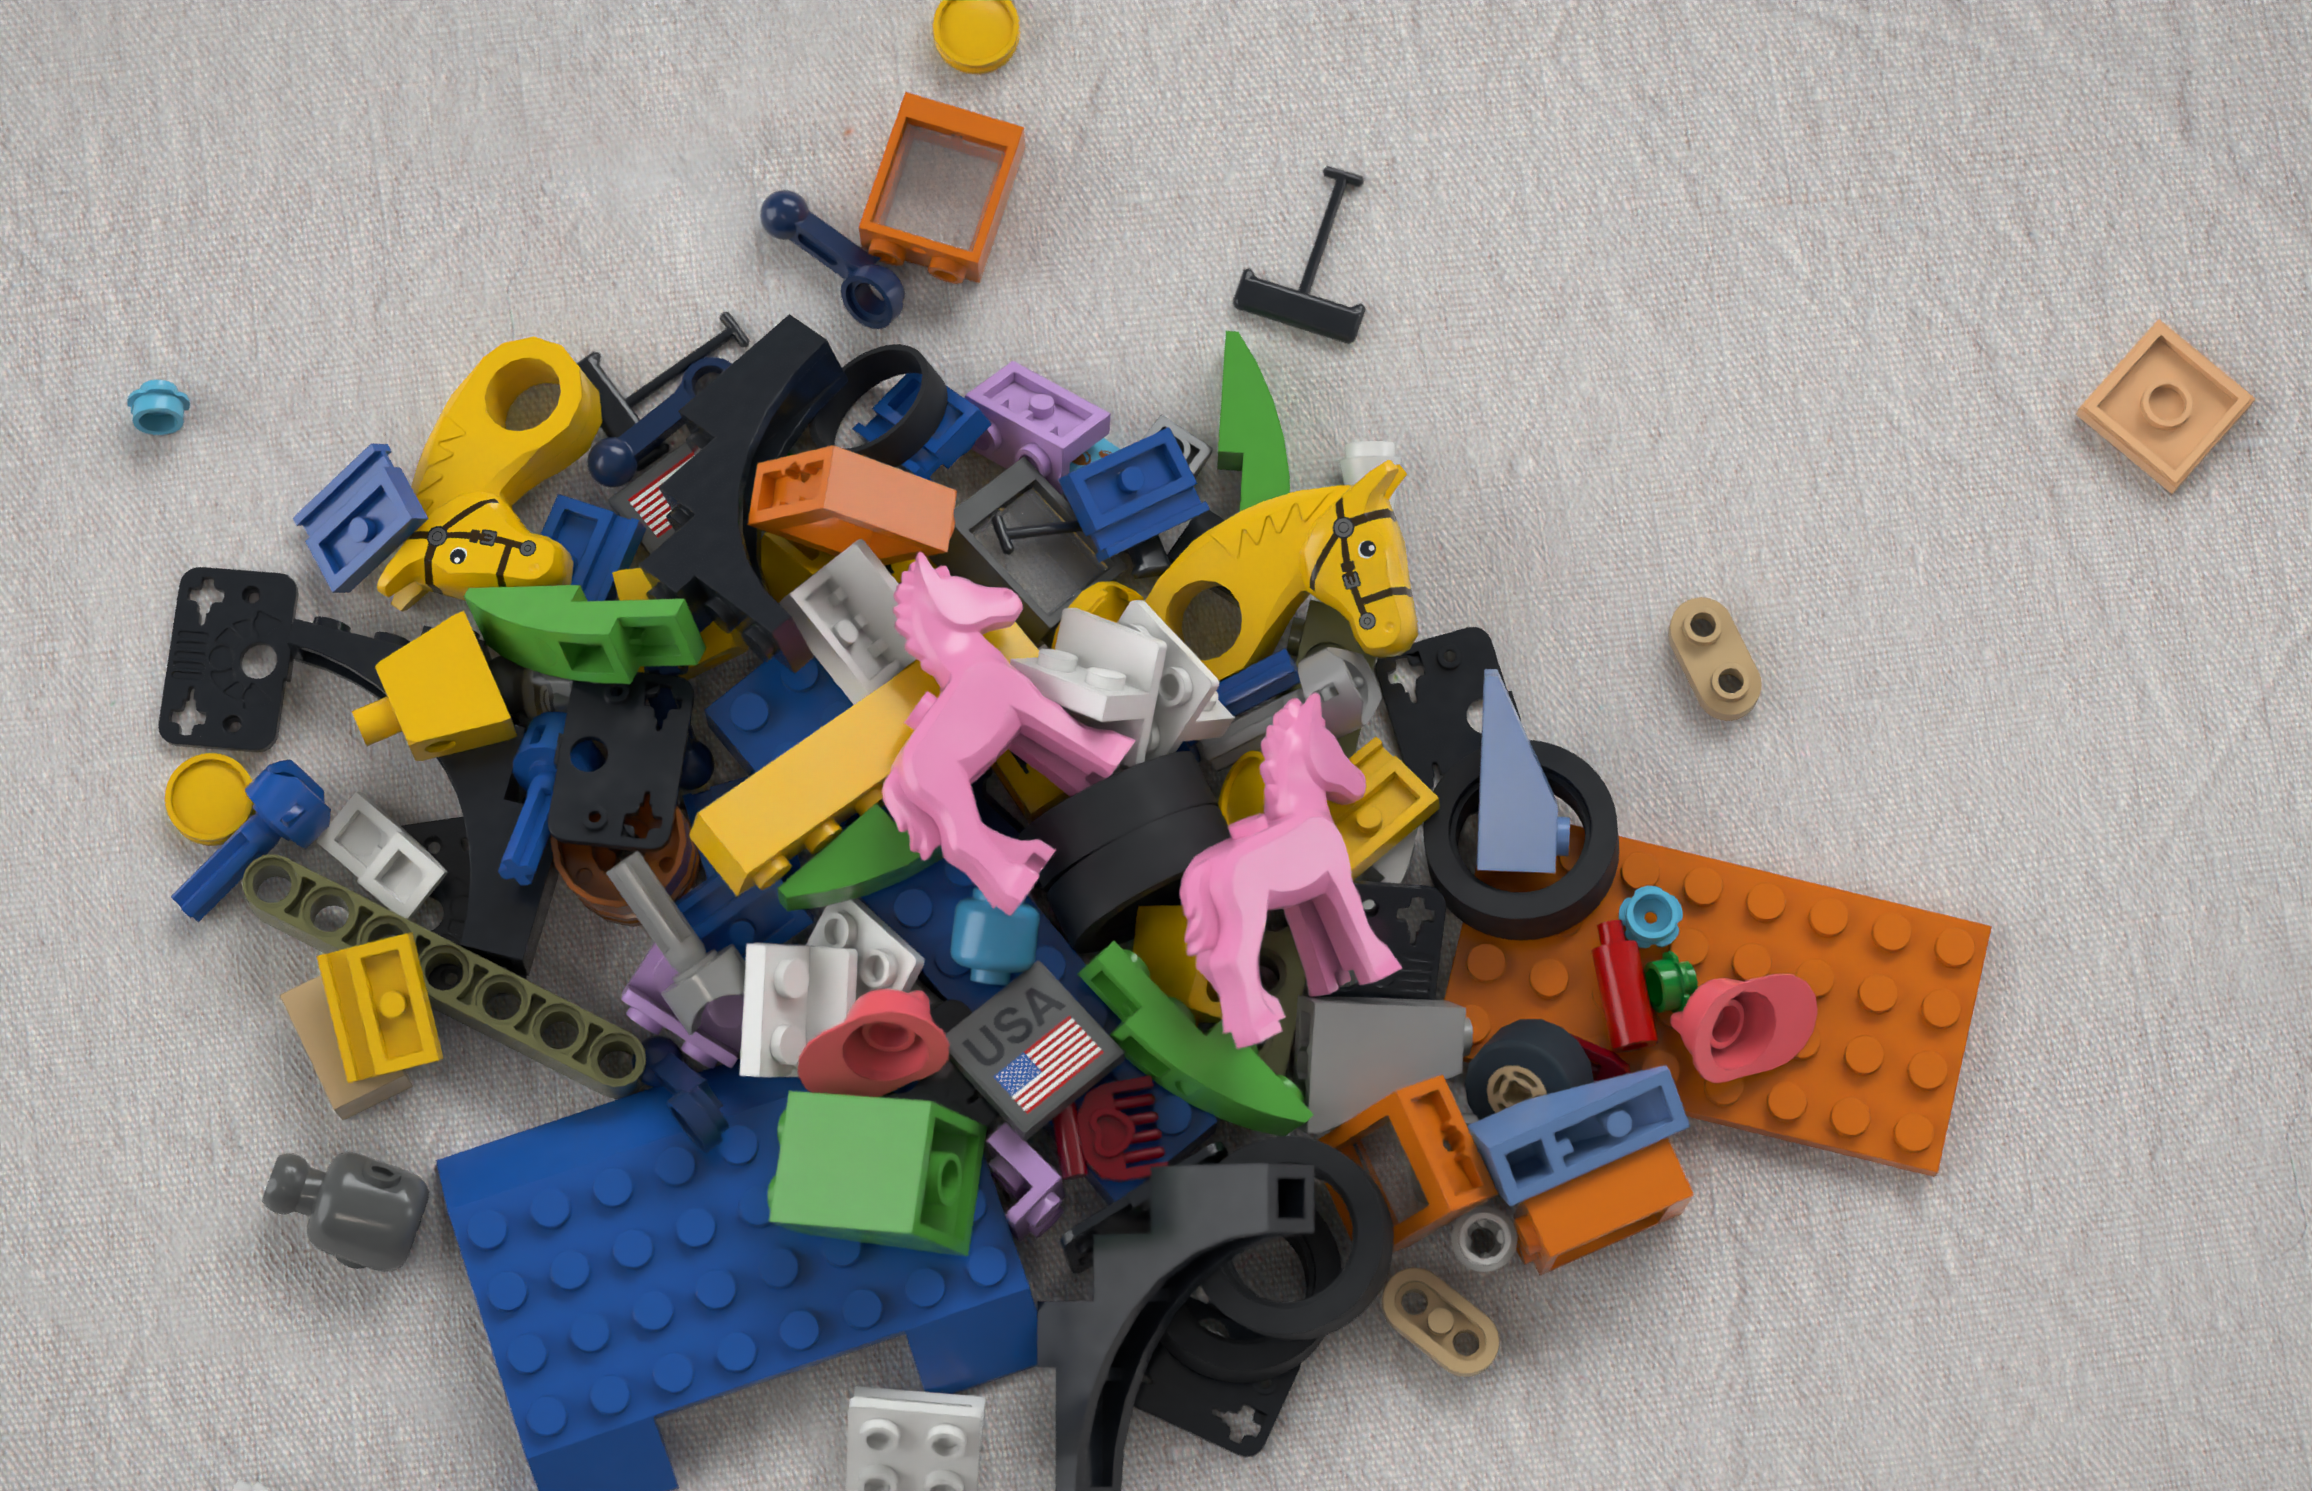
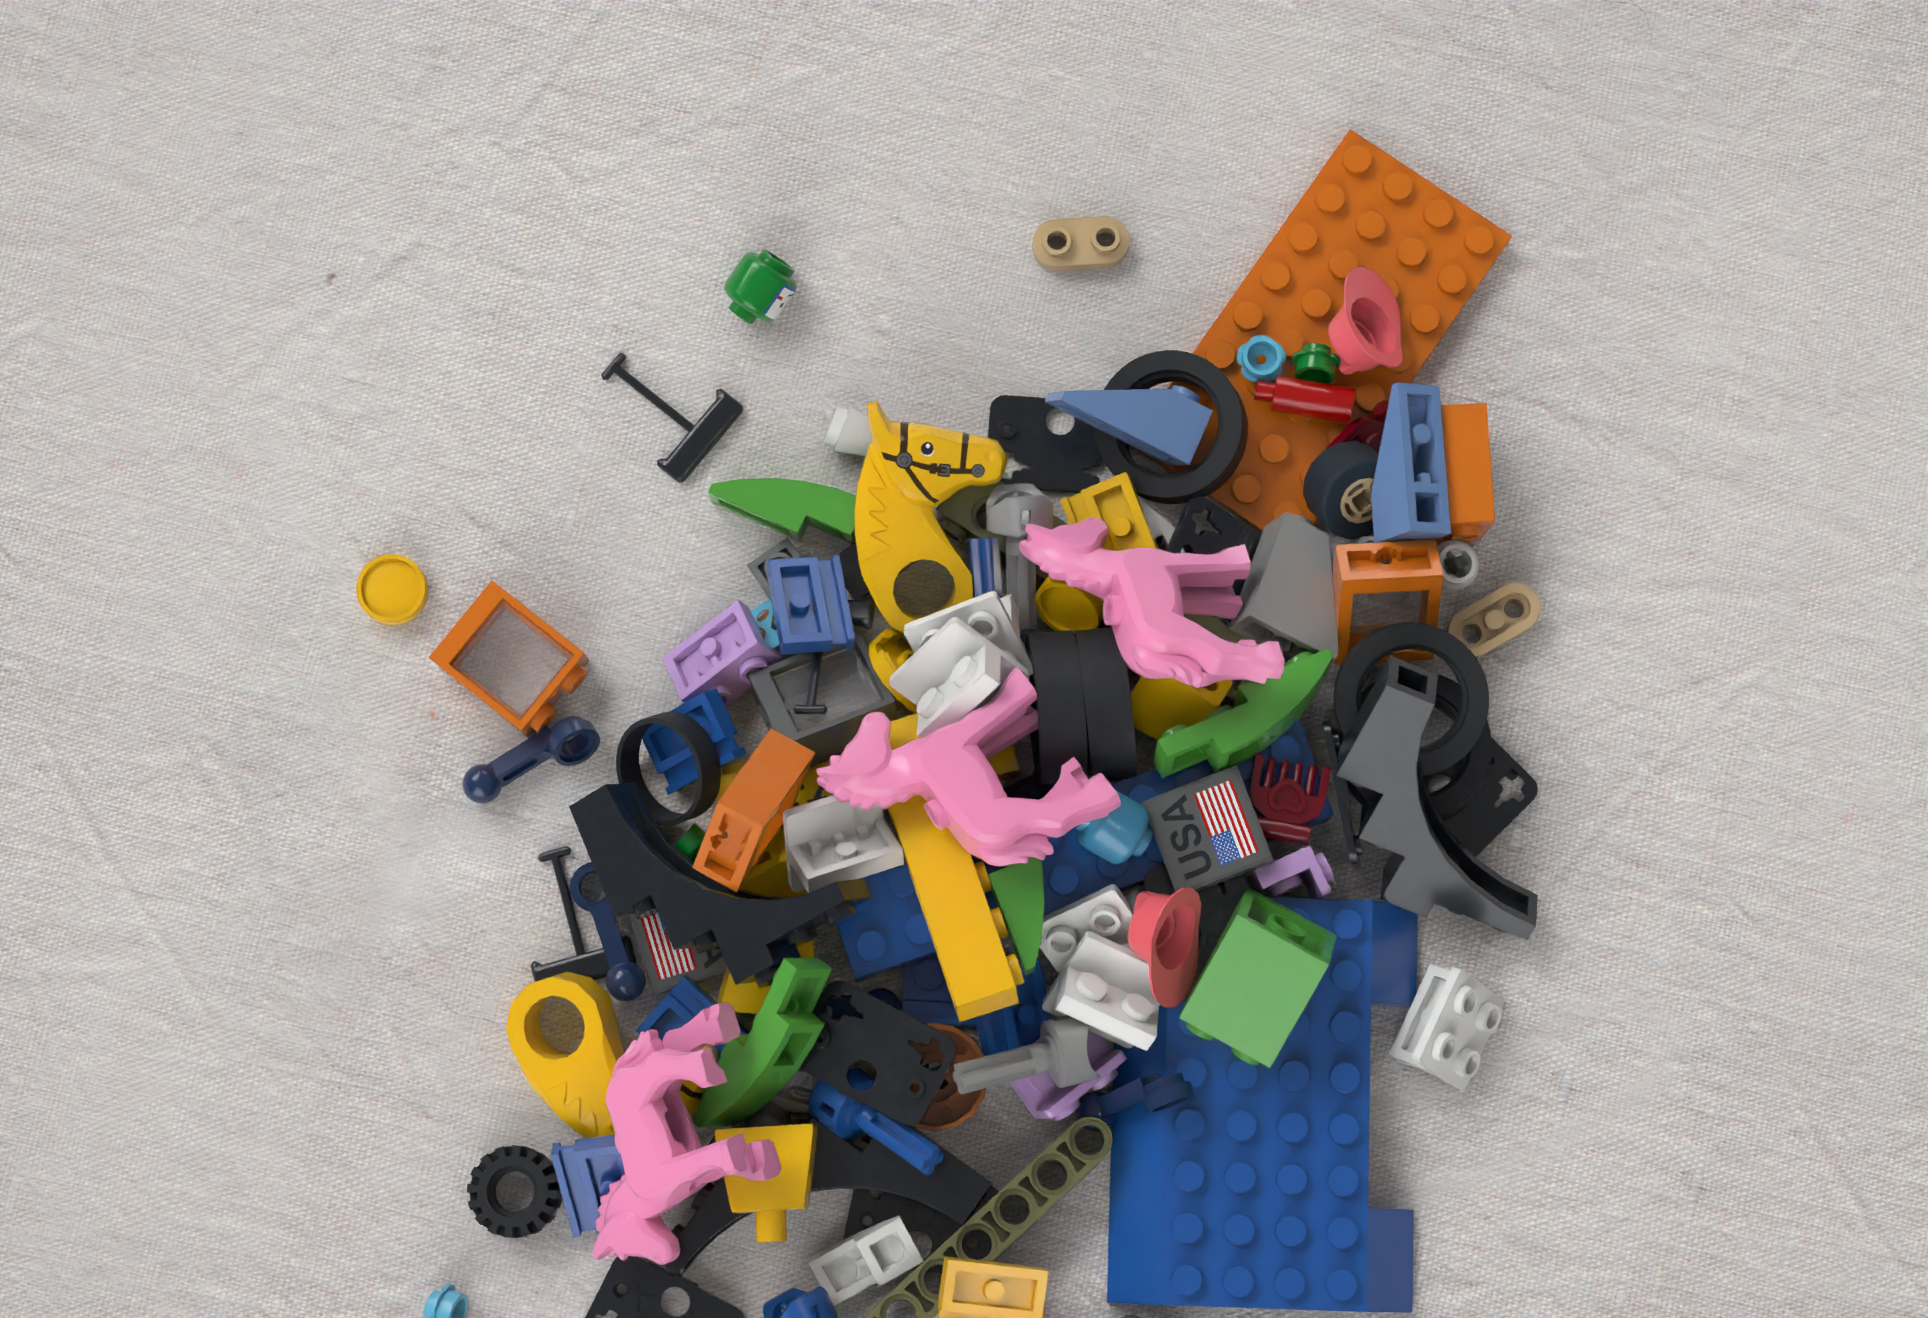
camera: 65 degrees left, 5 degrees up
(295, 405) = (484, 1184): none -> black tyre
(430, 551) = (660, 1141): none -> bright pink animal
(1504, 302) = (760, 286): none -> green head

